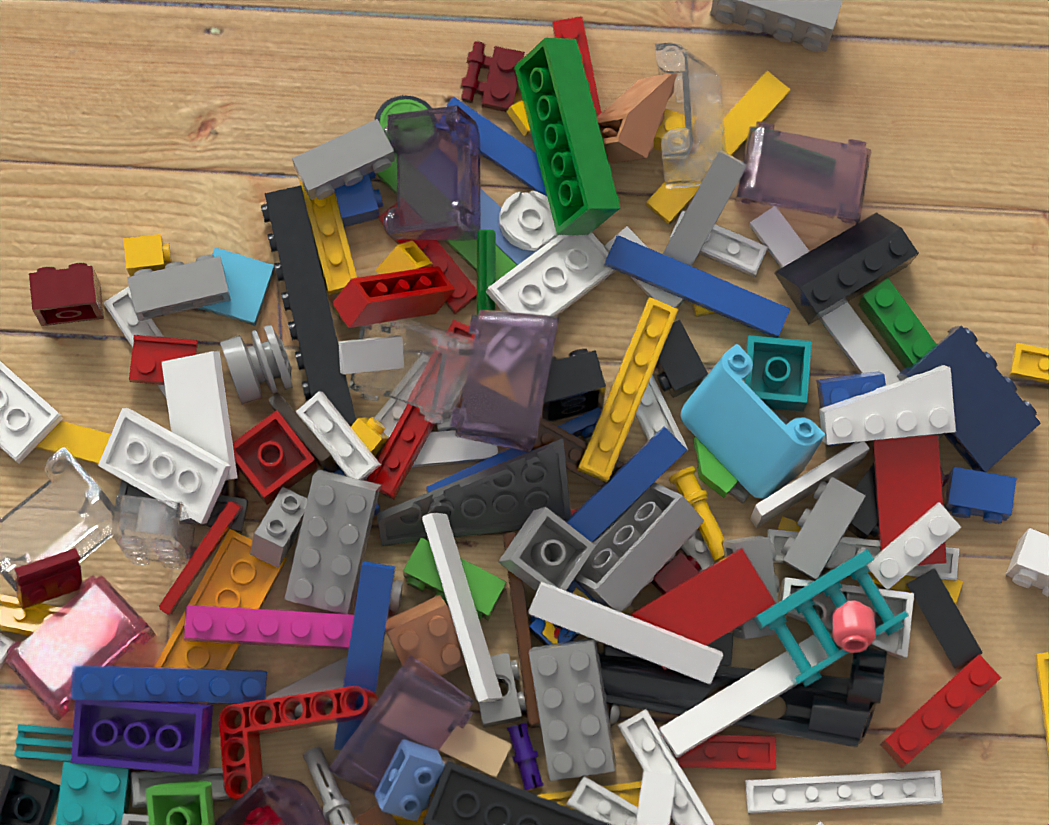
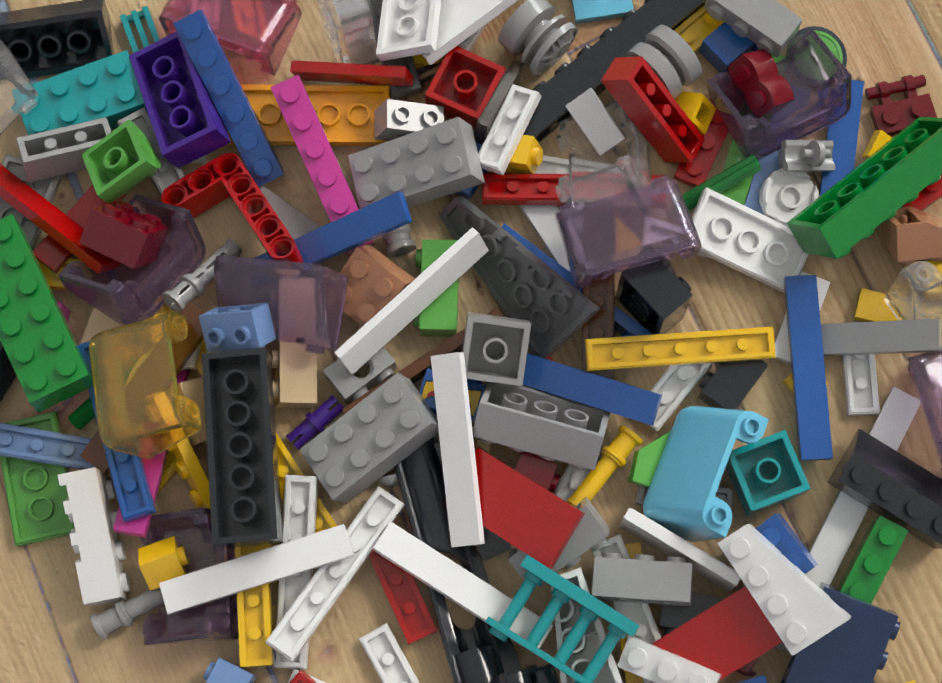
camera: 70 degrees right, 0 degrees up
(349, 257) = (669, 58): none -> light grey wheel
(415, 187) = (762, 85): none -> dark red brick
(501, 185) = (806, 156): none -> light grey hips
(853, 626) = (559, 646): coral head -> none

